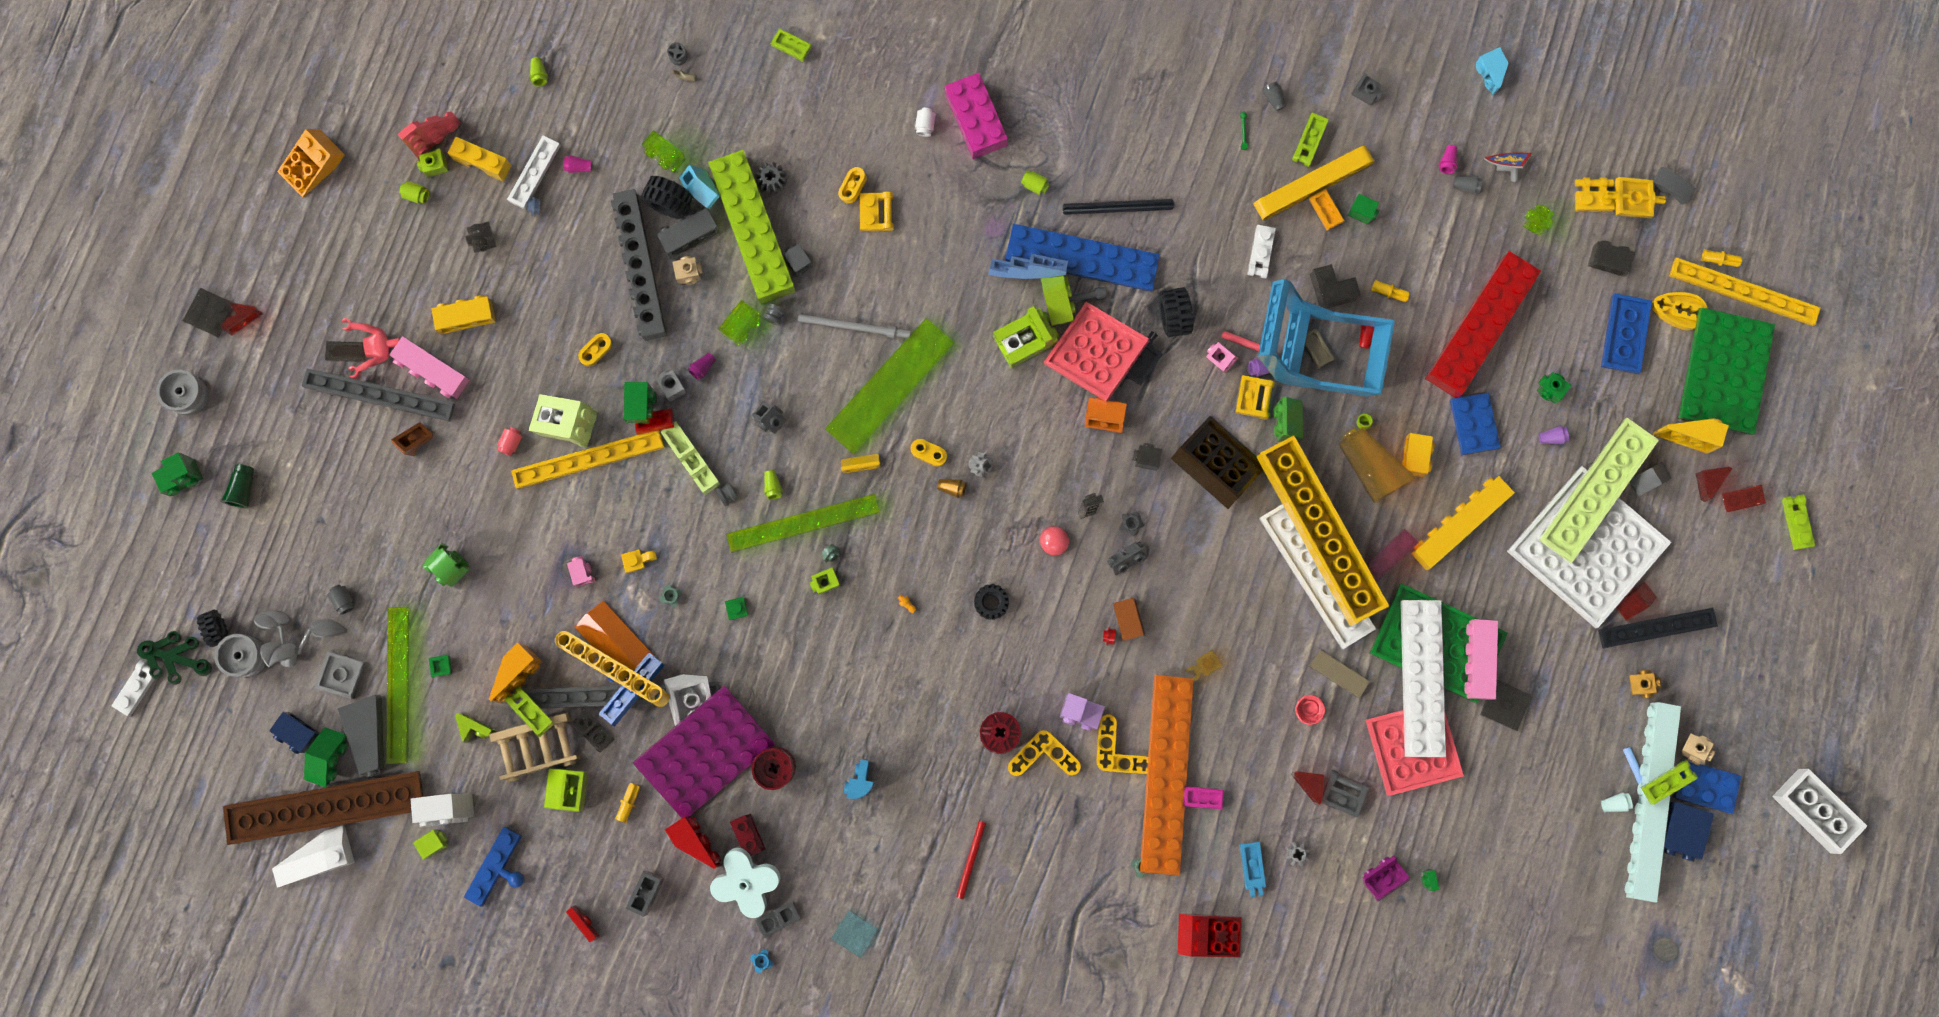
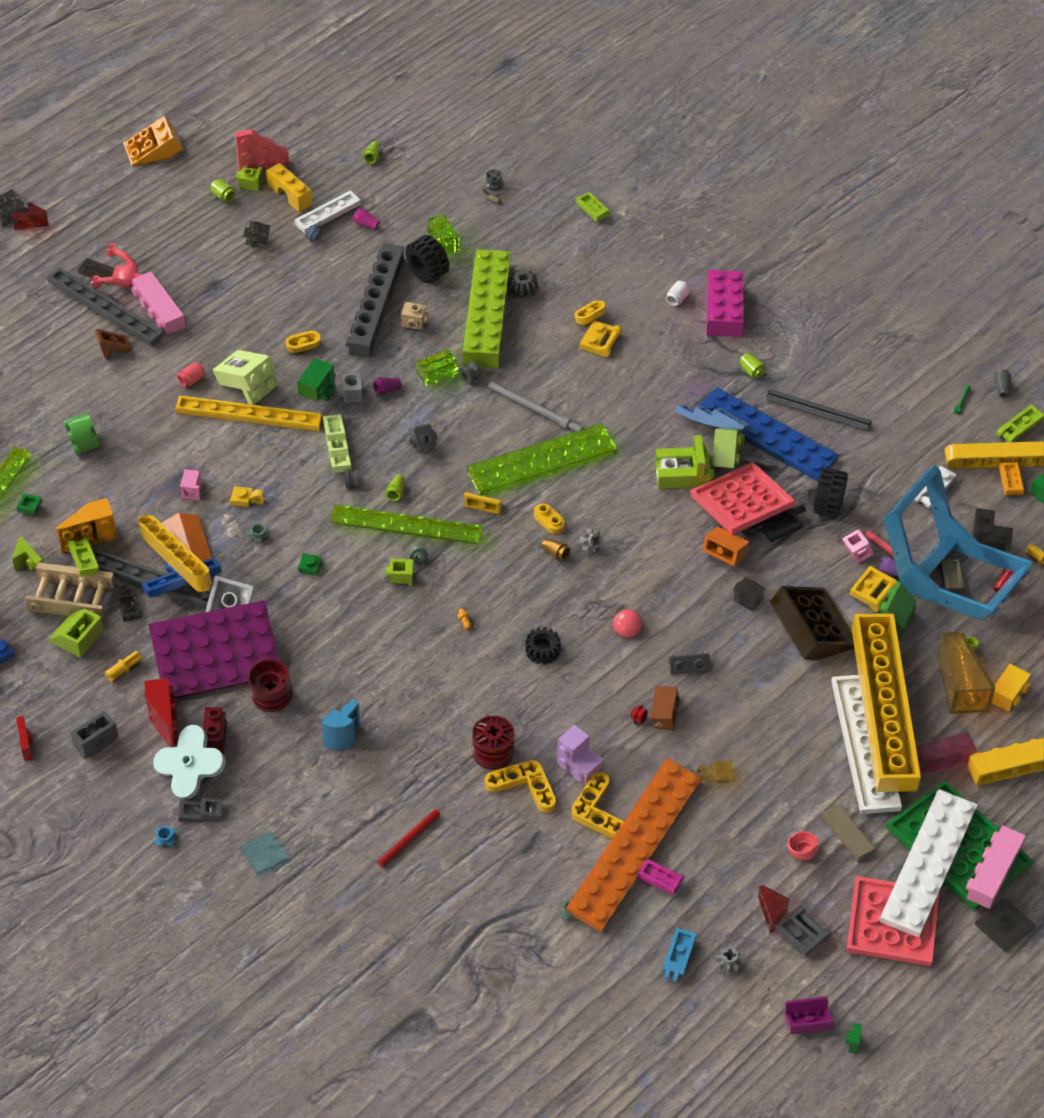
camera: 25 degrees right, 30 degrees down
(463, 314) = (209, 280): yellow brick -> none
(661, 420) = (322, 406): red plate -> none
(688, 232) = (432, 293): dark grey brick -> none
(700, 185) = (460, 263): medium azure slope -> none
(797, 259) = (513, 344): dark grey brick -> none
(1090, 505) = (673, 593): clear smoke plate -> none
(1131, 528) = (707, 635): dark grey plate -> none
(1209, 935) = (605, 992): red slope -> none

